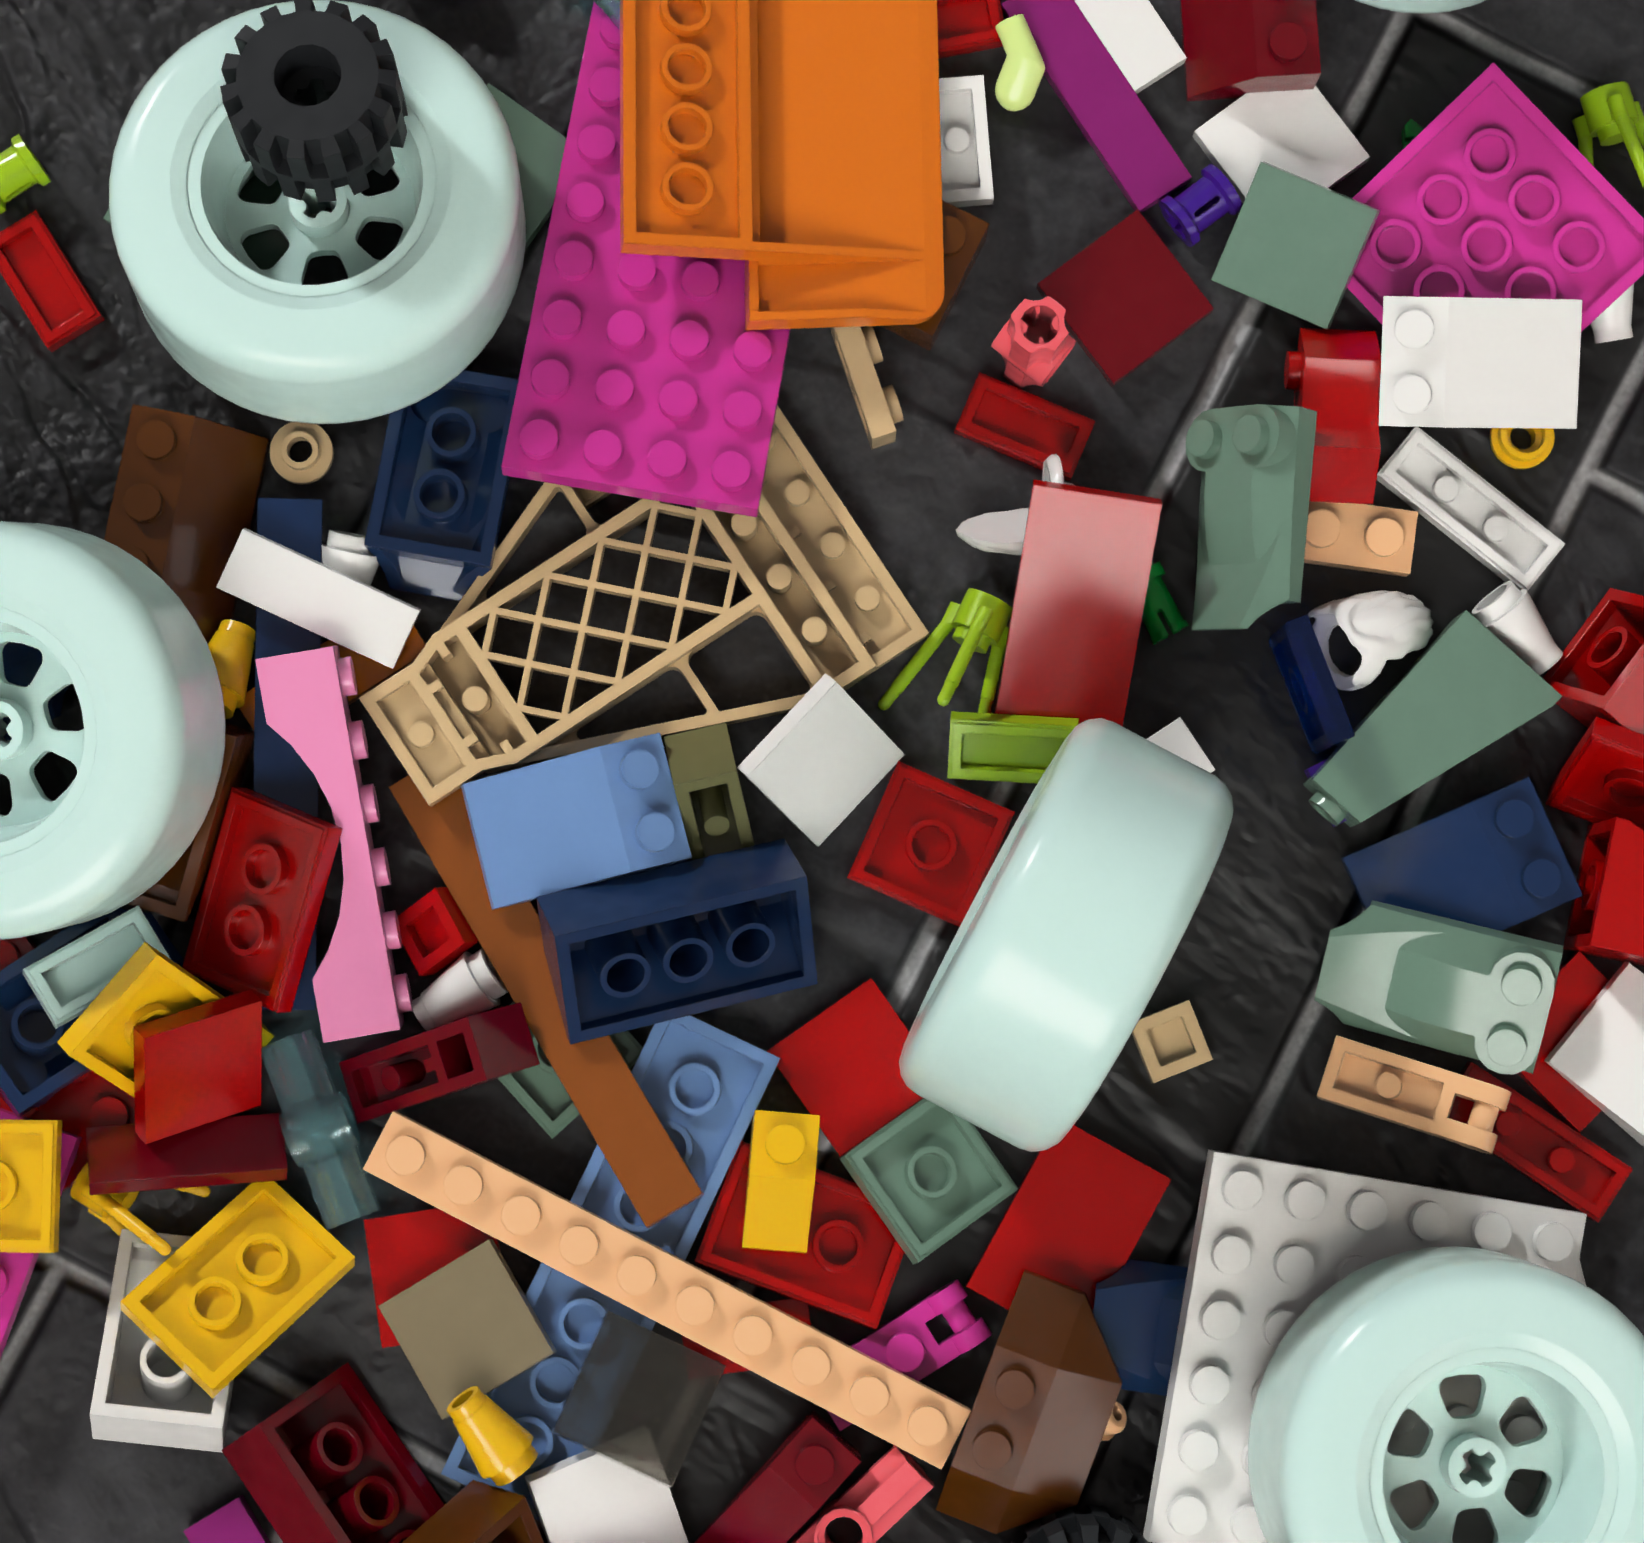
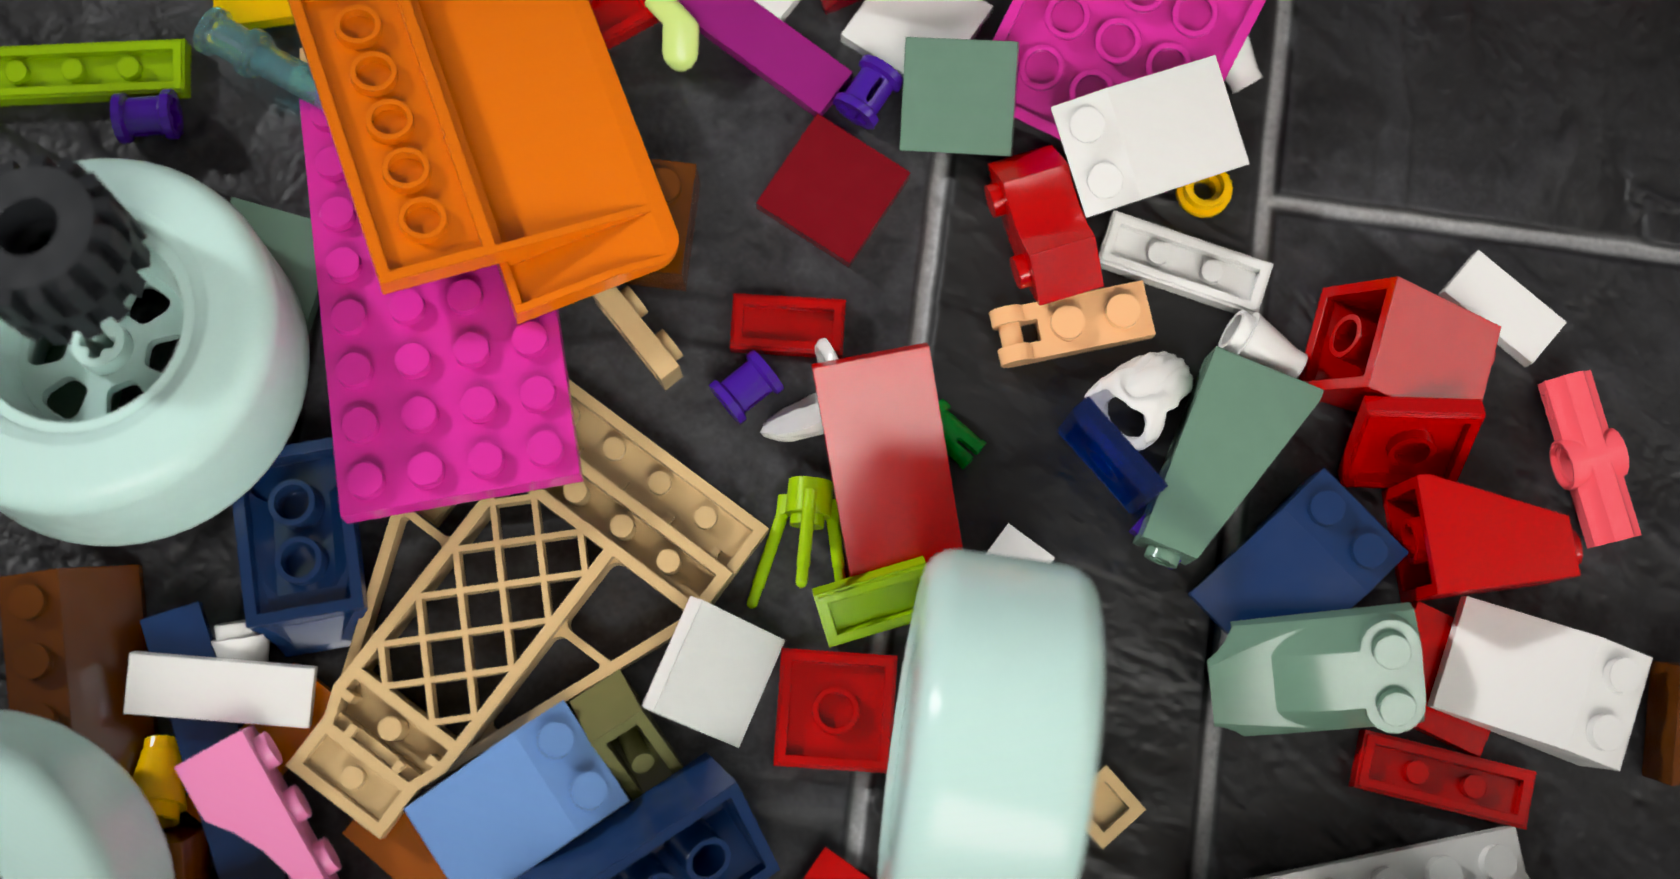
camera: 25 degrees left, 5 degrees down
(315, 466) = (187, 567): tan plate -> none
(958, 476) = (746, 386): none -> dark purple bush
(965, 142) = (653, 107): white plate -> none
(1034, 342) = (769, 247): coral piece -> none
(1250, 510) = (1004, 327): sand green slope -> none
(1411, 1093) = (1327, 777): light nougat plate -> none

